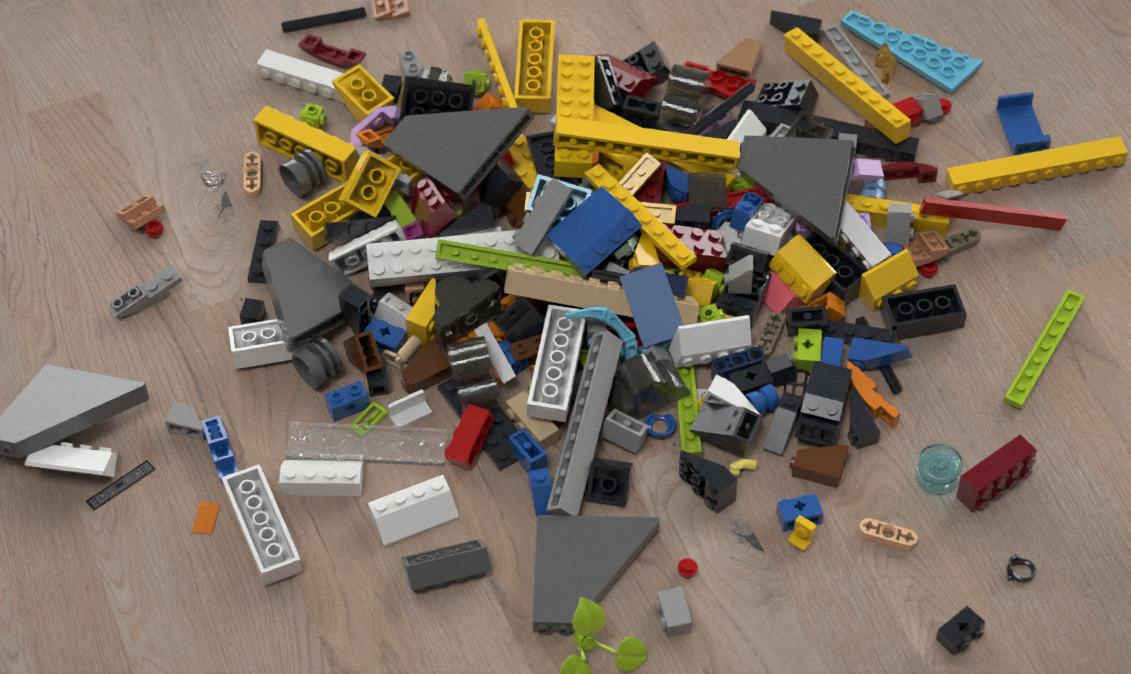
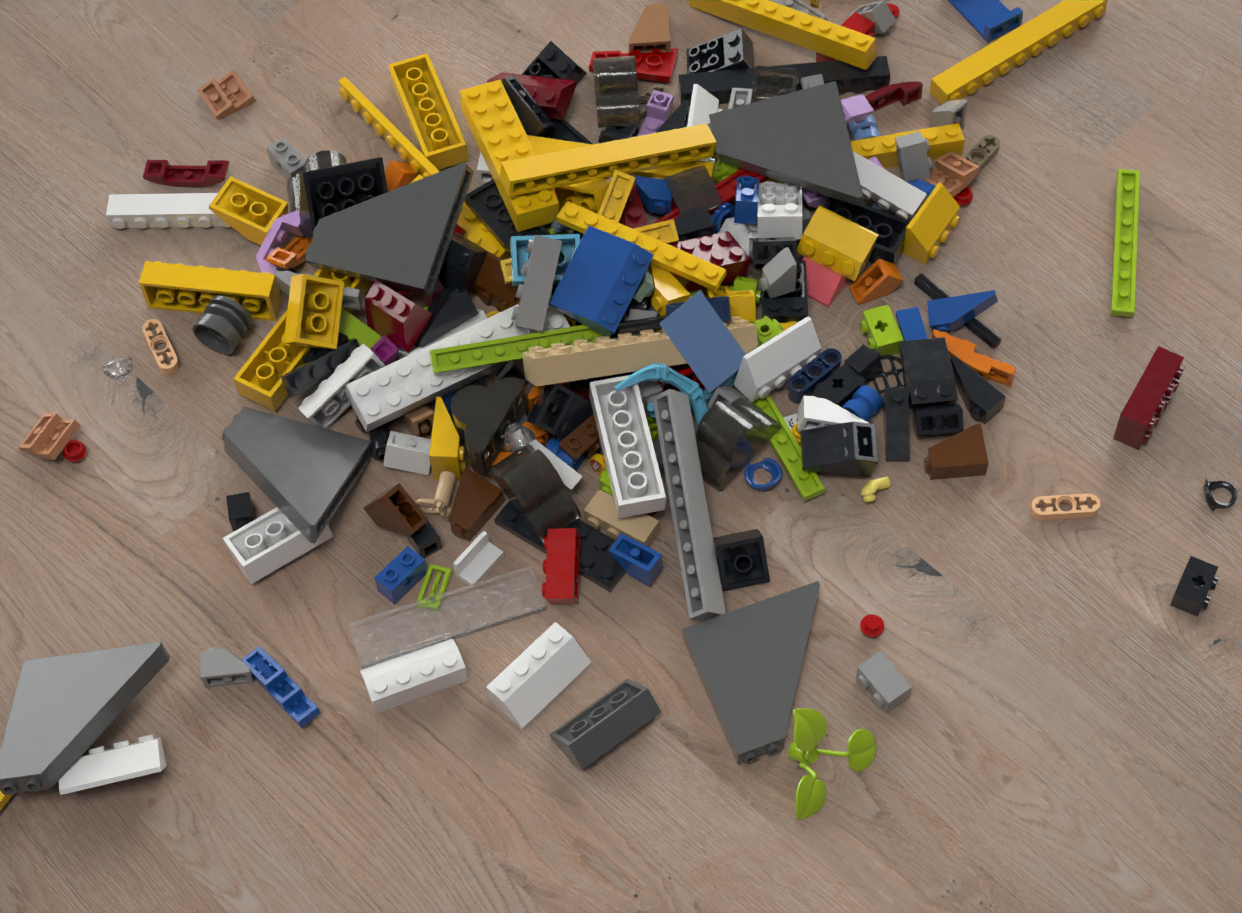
camera: 20 degrees left, 5 degrees up
(120, 485) = (179, 773): sticker -> none
(141, 297) = (103, 534): light grey slope -> none
(205, 517) = (300, 773): orange sticker -> none
(262, 525) = (374, 758): white brick -> none
(265, 239) = (214, 425): black plate -> none
(313, 115) = (201, 254): lime brick -> none
(317, 362) = (347, 542): dark grey wheel -> none
(323, 19) = (156, 137): black axle -> none
(355, 308) = (365, 464): black slope -> none
(387, 336) = (416, 481): blue brick -> none
(393, 85) = (276, 186): black brick -> none
(478, 328) = (517, 437): none -> clear brick
(484, 81) = (367, 144): lime brick -> none
(540, 490) = (670, 599): blue slope -> none
(624, 430) = (731, 495): light grey brick -> none
(641, 111) = (576, 125): black brick -> none
(708, 480) = (849, 518): black slope -> none
(722, 109) = (663, 94): black axle -> none
(767, 328) = (835, 322): dark tan beam -> none
(803, 533) = (977, 540): yellow bracket -> none
(805, 318) = (864, 298): black slope -> none
(805, 505) = (962, 517): blue brick -> none
(848, 330) = (919, 295): black plate -> none
(923, 311) = (983, 246): black brick -> none
(939, 469) = (1085, 414): clear light blue wheel -> none
(992, 213) = (1005, 113): red tile -> none

